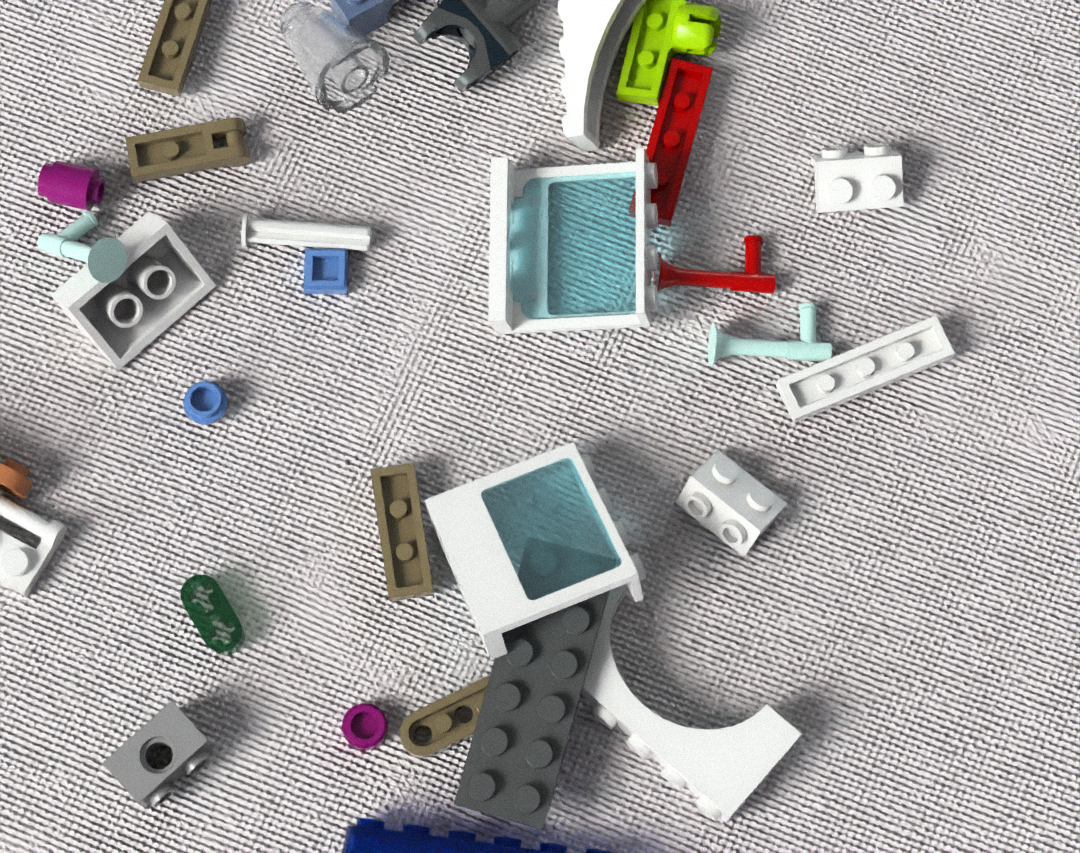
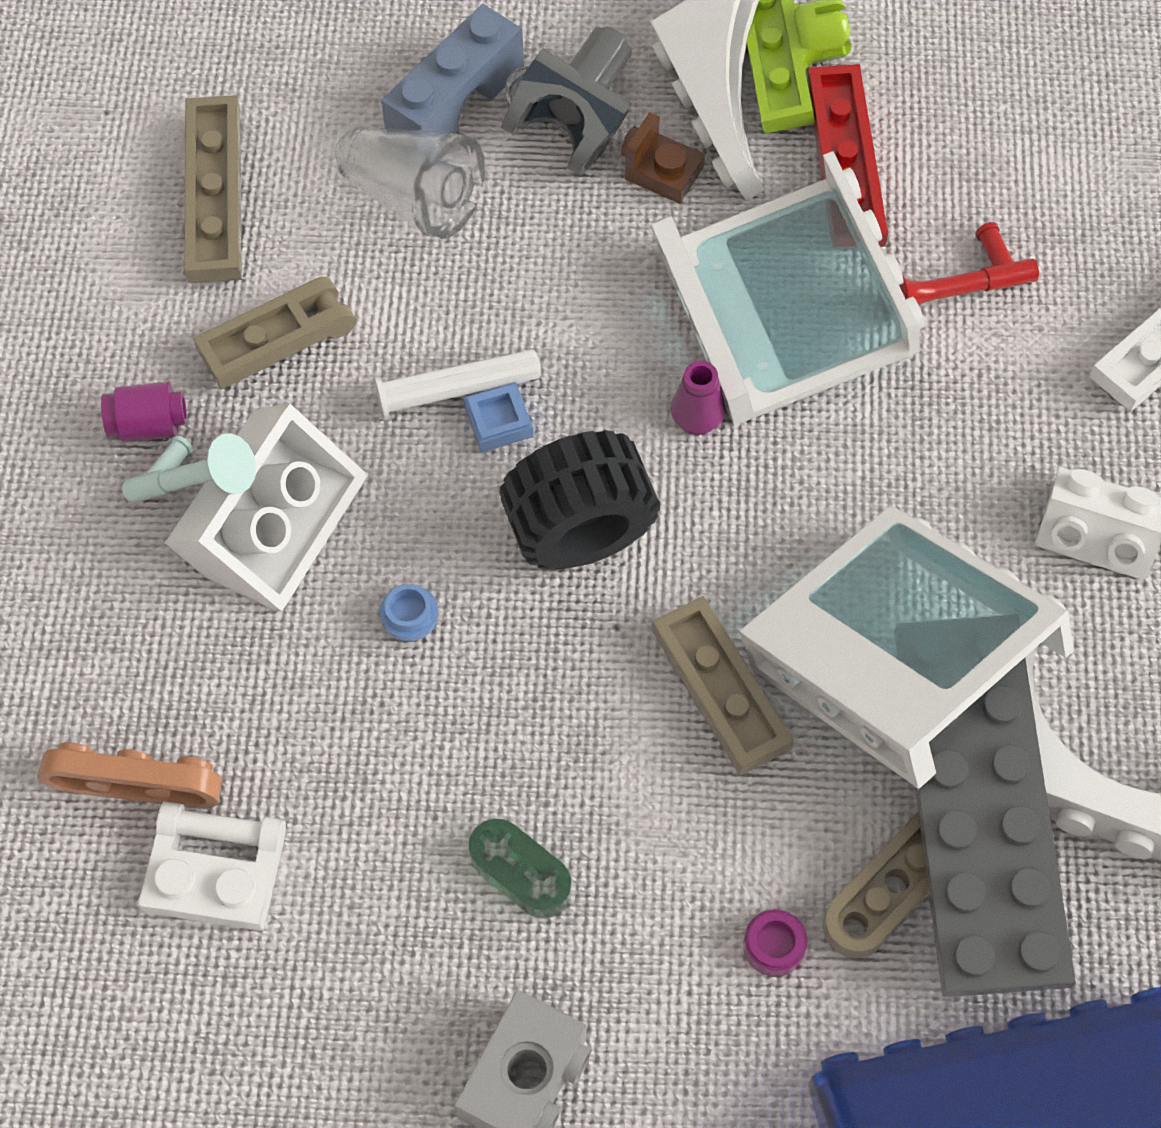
camera: 20 degrees left, 10 degrees down
(347, 364) = (579, 500): none -> black tyre
(471, 318) = (698, 400): none -> magenta cone
(528, 99) = (659, 161): none -> reddish brown bracket
(806, 349) = (1007, 349): light aqua piece -> none
(858, 178) = (1076, 133): white bracket -> none

